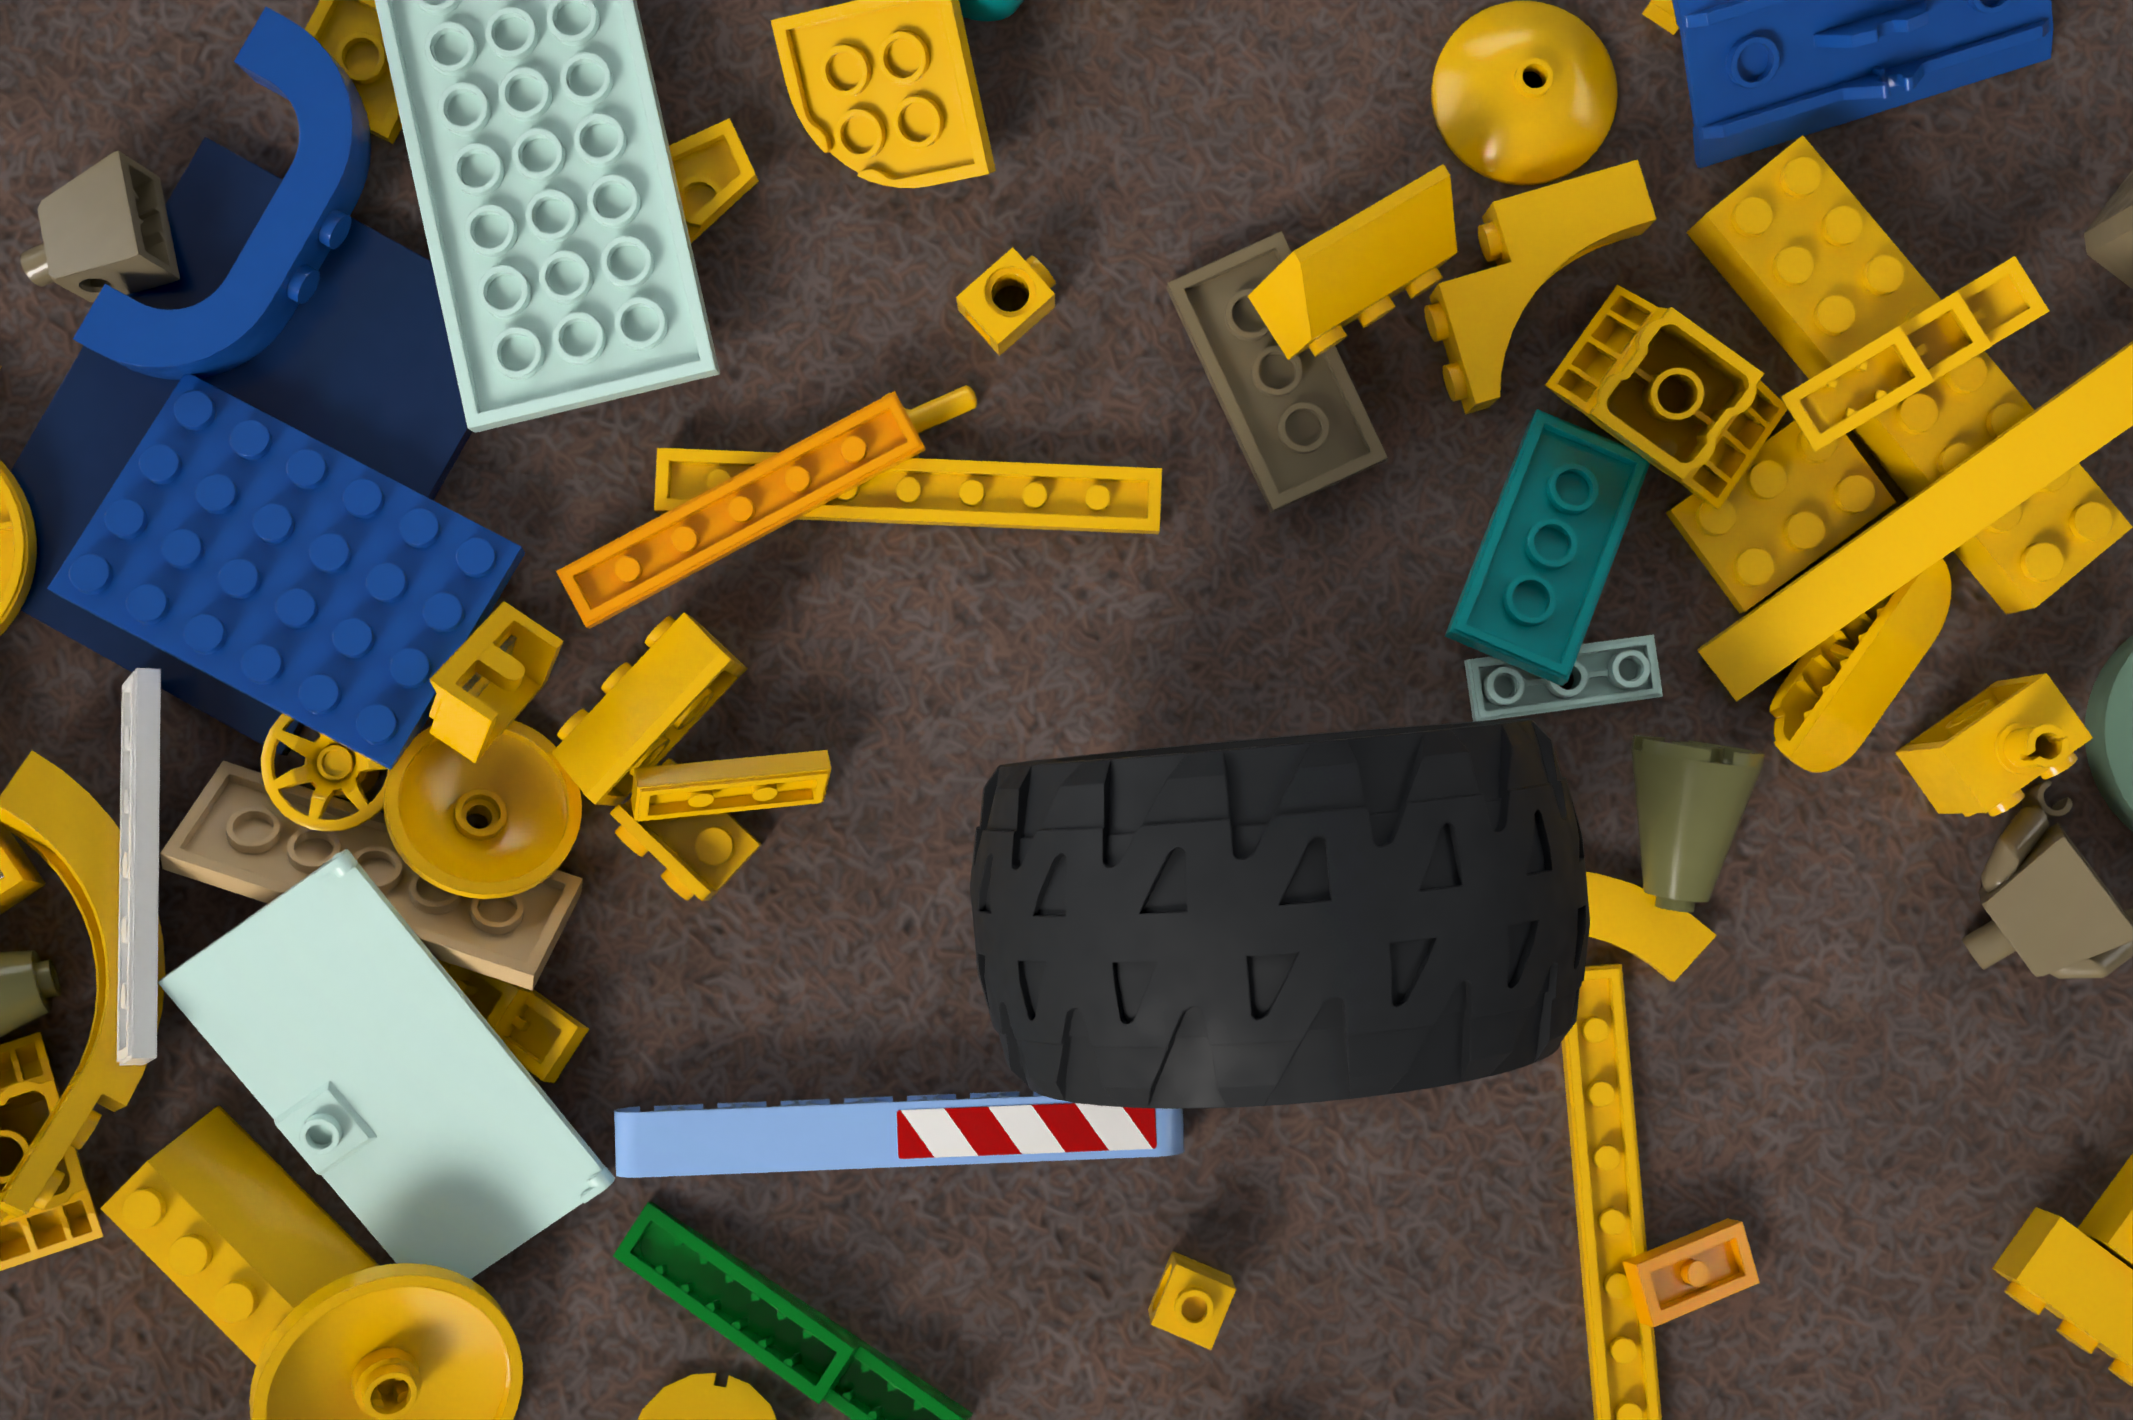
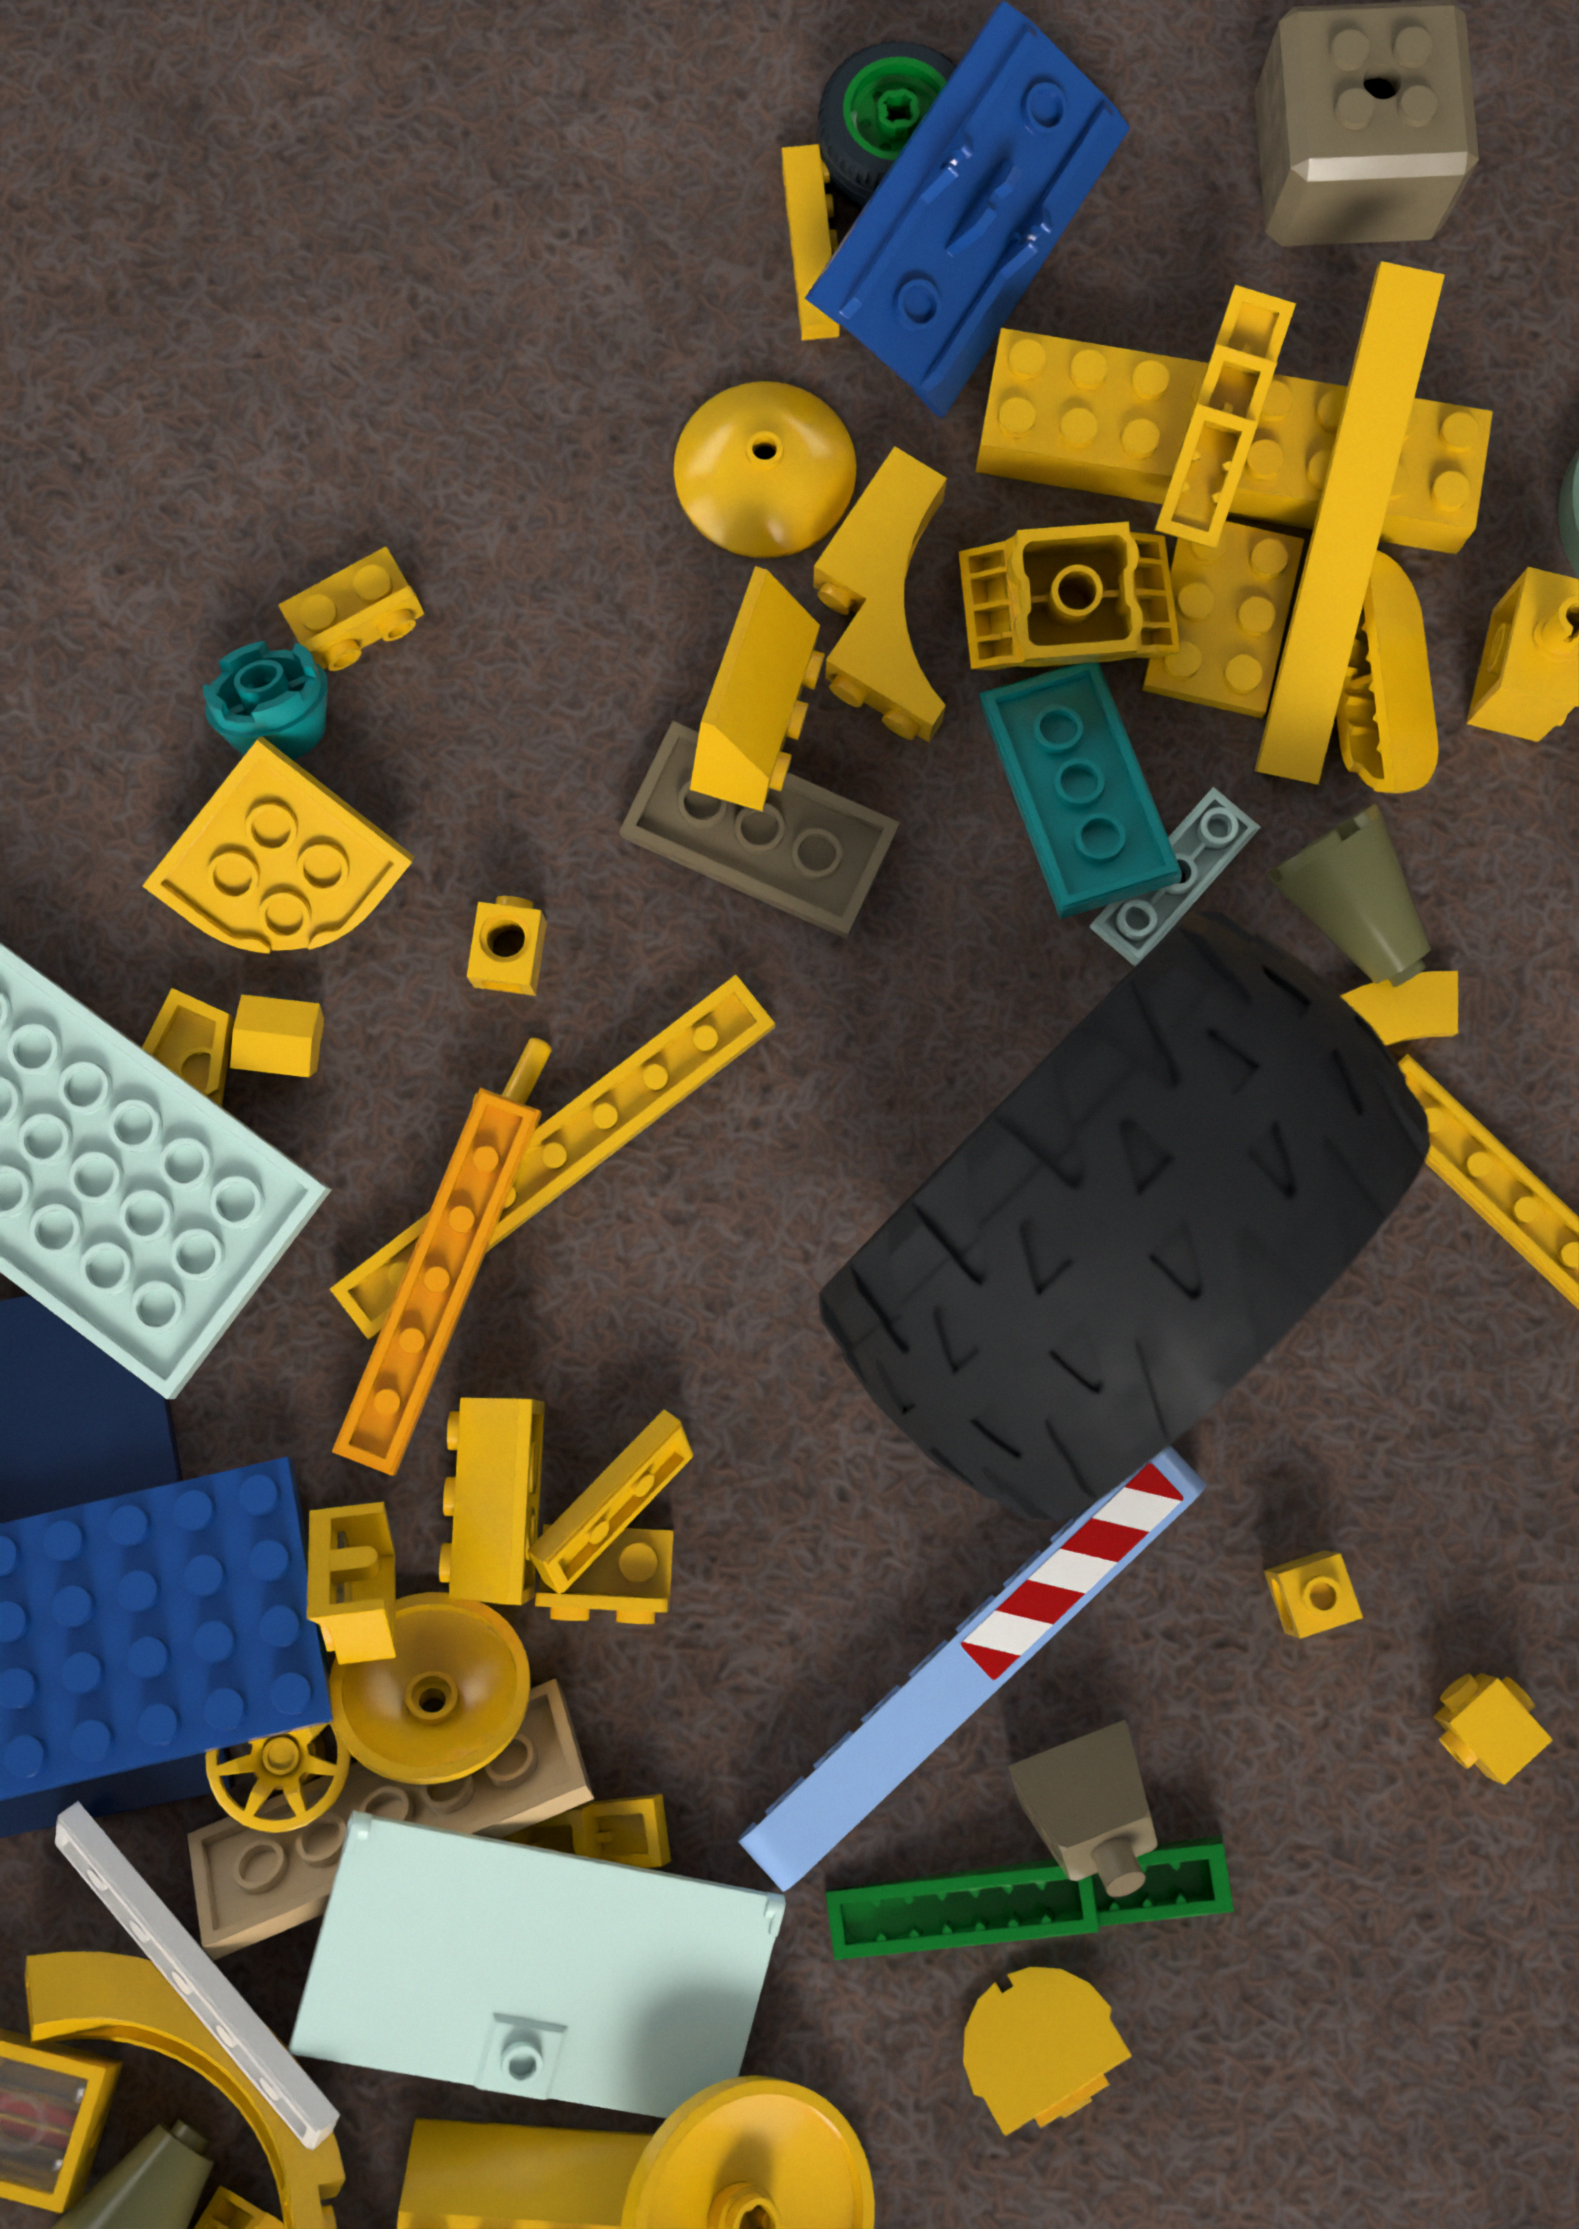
camera: 35 degrees left, 5 degrees down
(777, 222) = (277, 1036): none -> yellow piece
(891, 1311) = (1090, 1807): none -> dark tan torso

